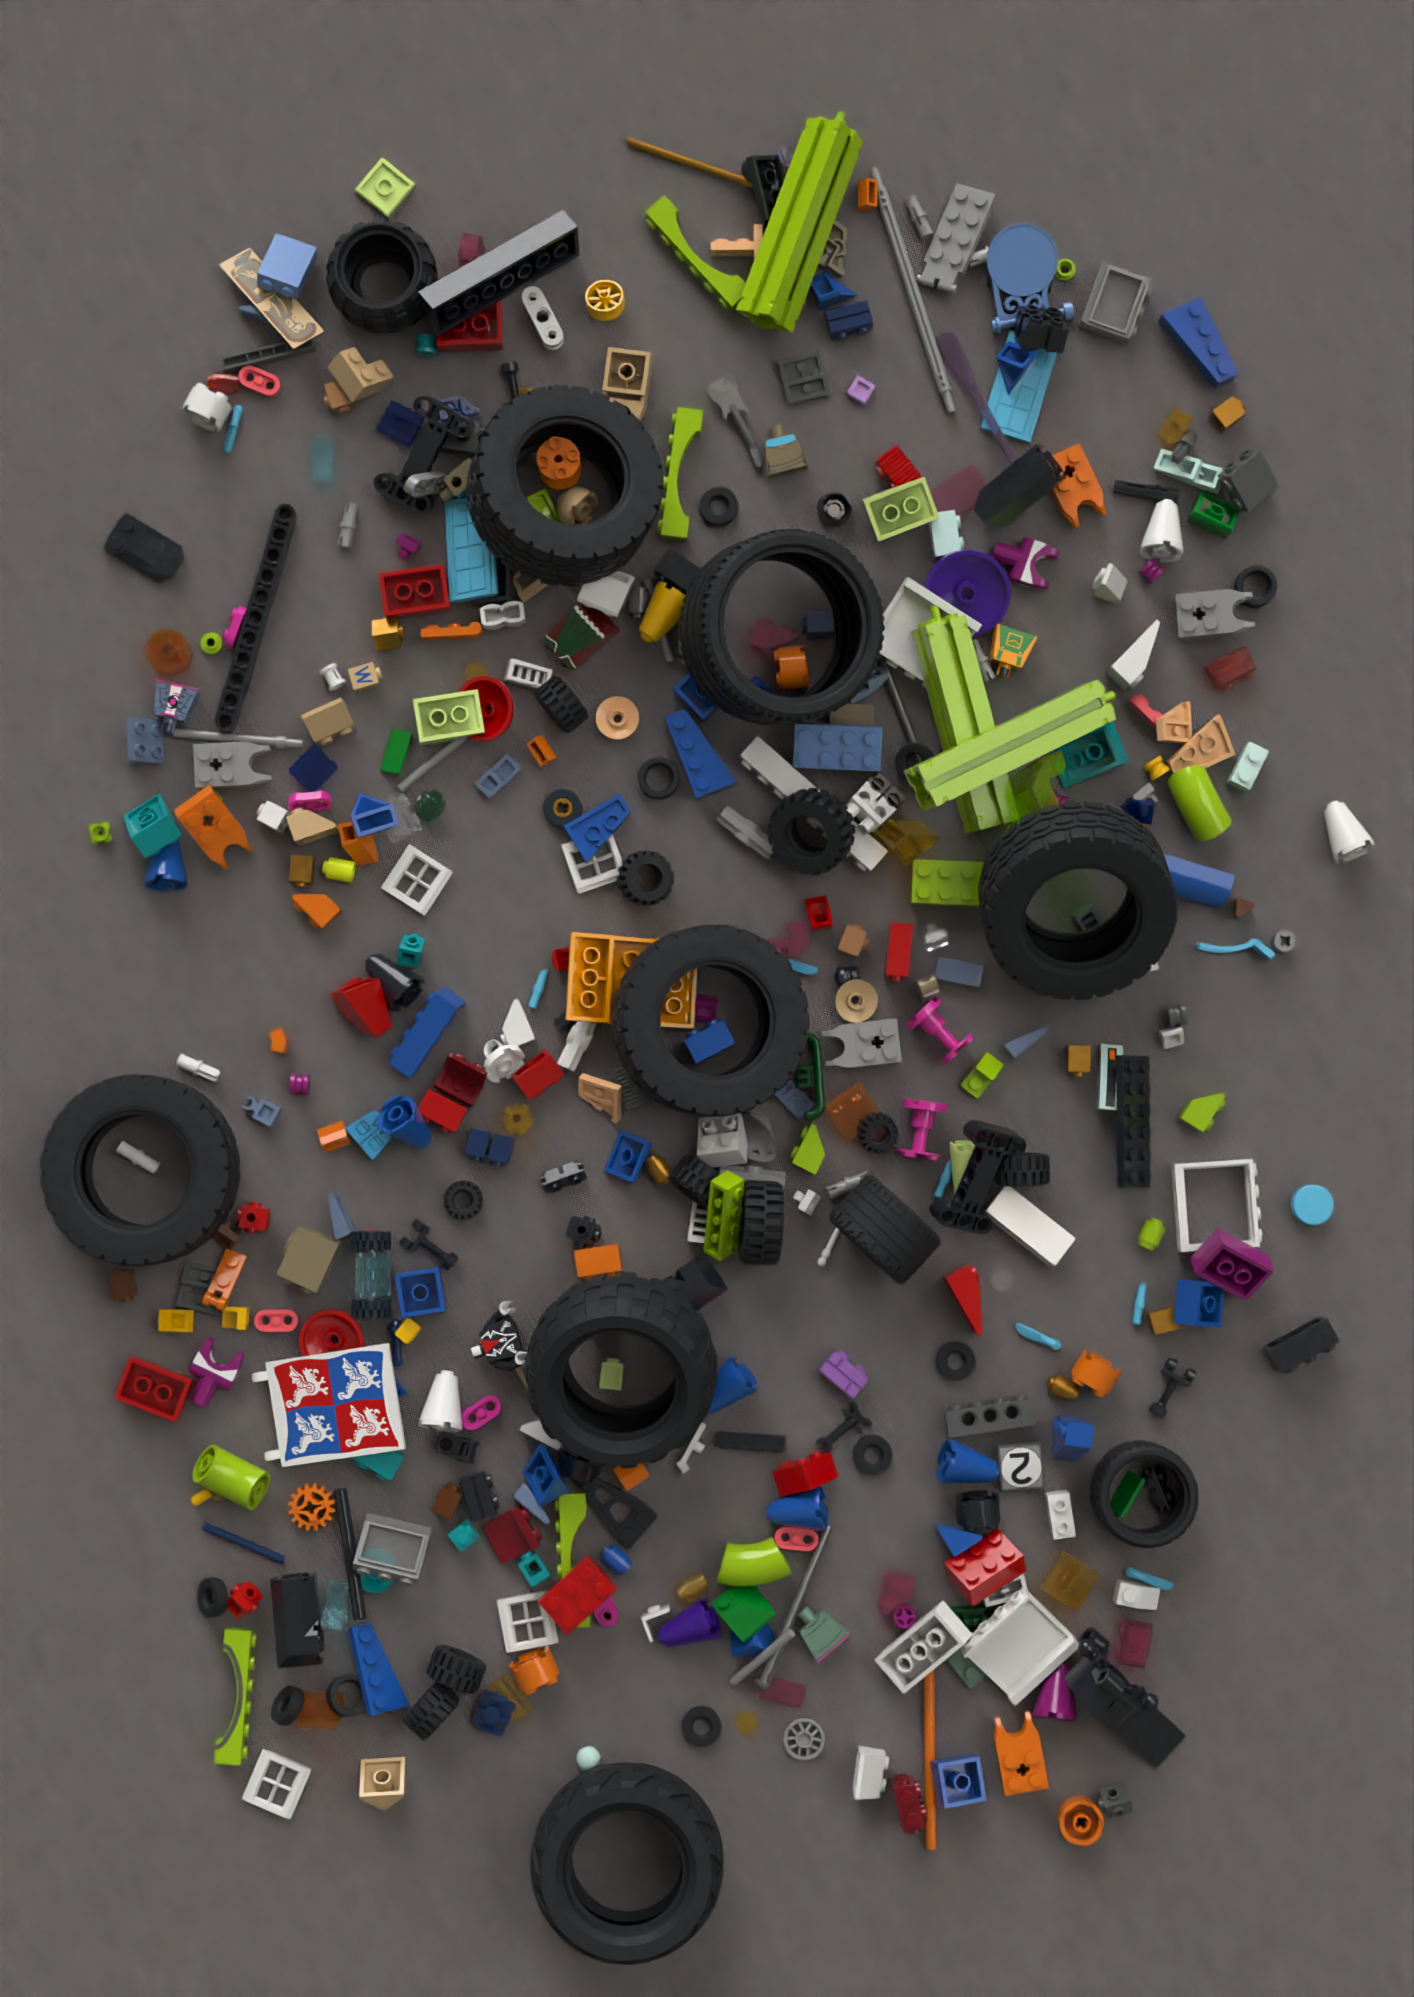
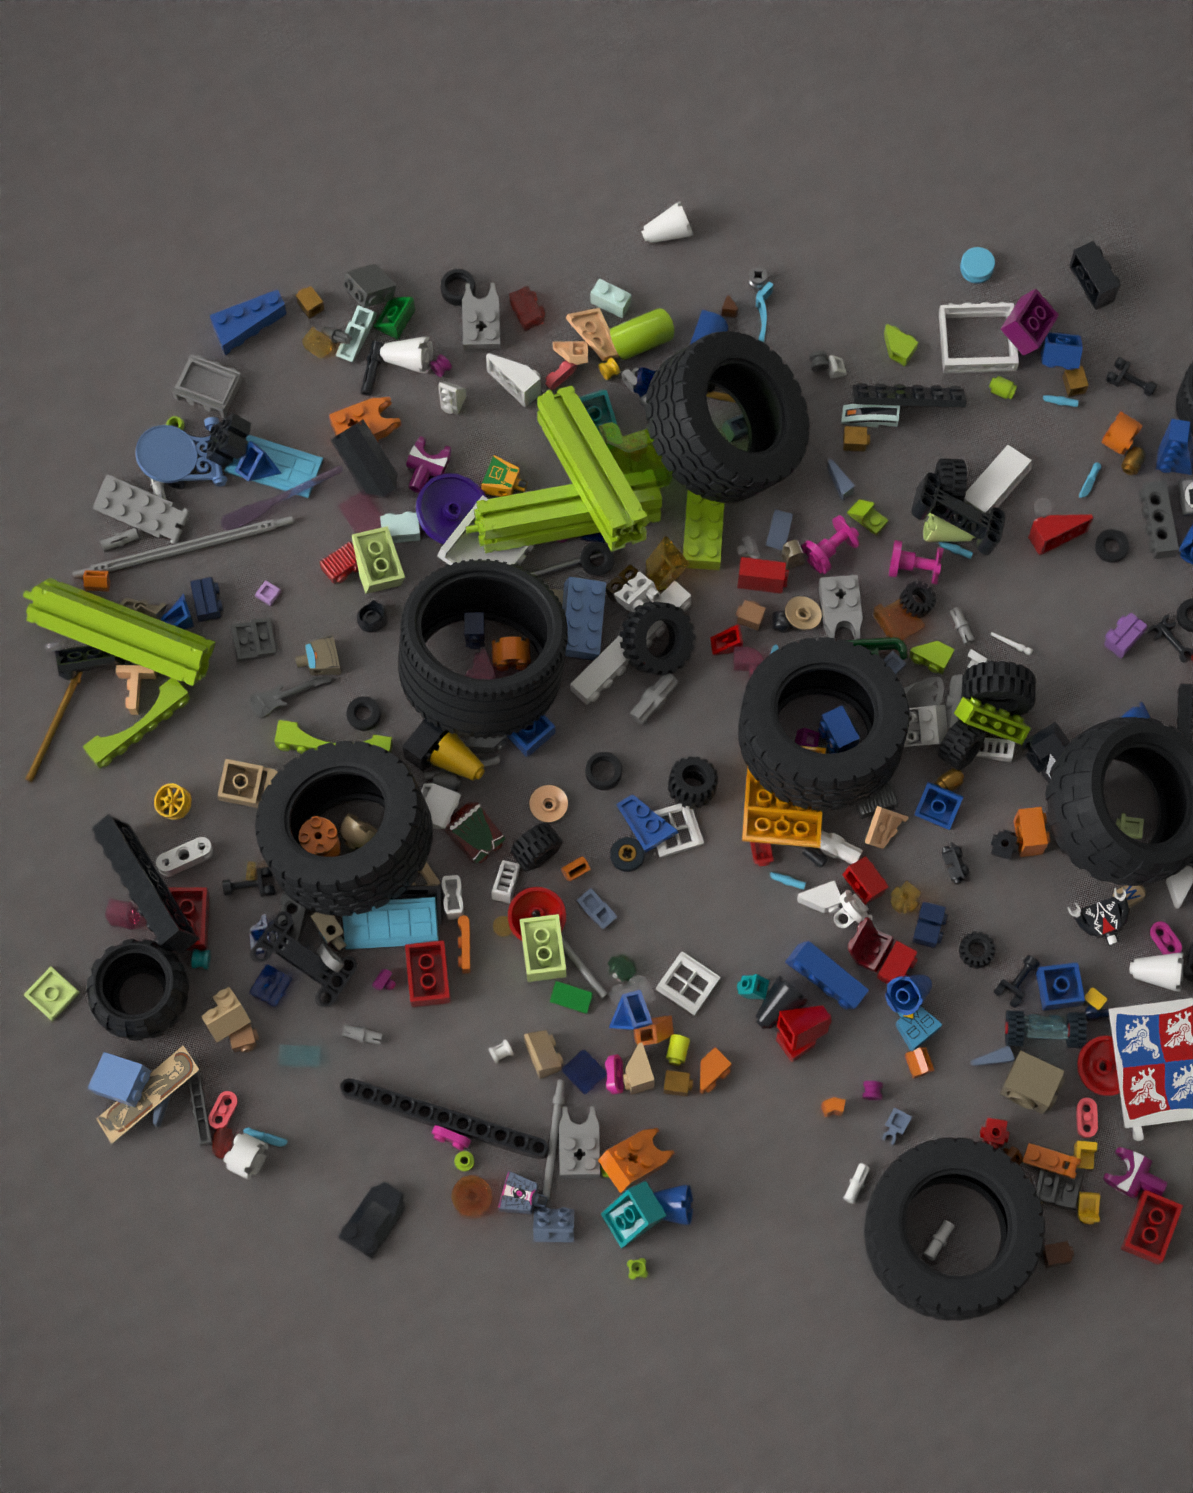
camera: 85 degrees left, 15 degrees down
(273, 816) = (628, 1105): white slope -> none
(365, 677) = (502, 1022): tan brick -> none
(387, 633) = (464, 999): pearl gold brick -> none
(700, 761) = (587, 736): blue wedge -> none
(885, 1229) = (1004, 586): black tyre -> none

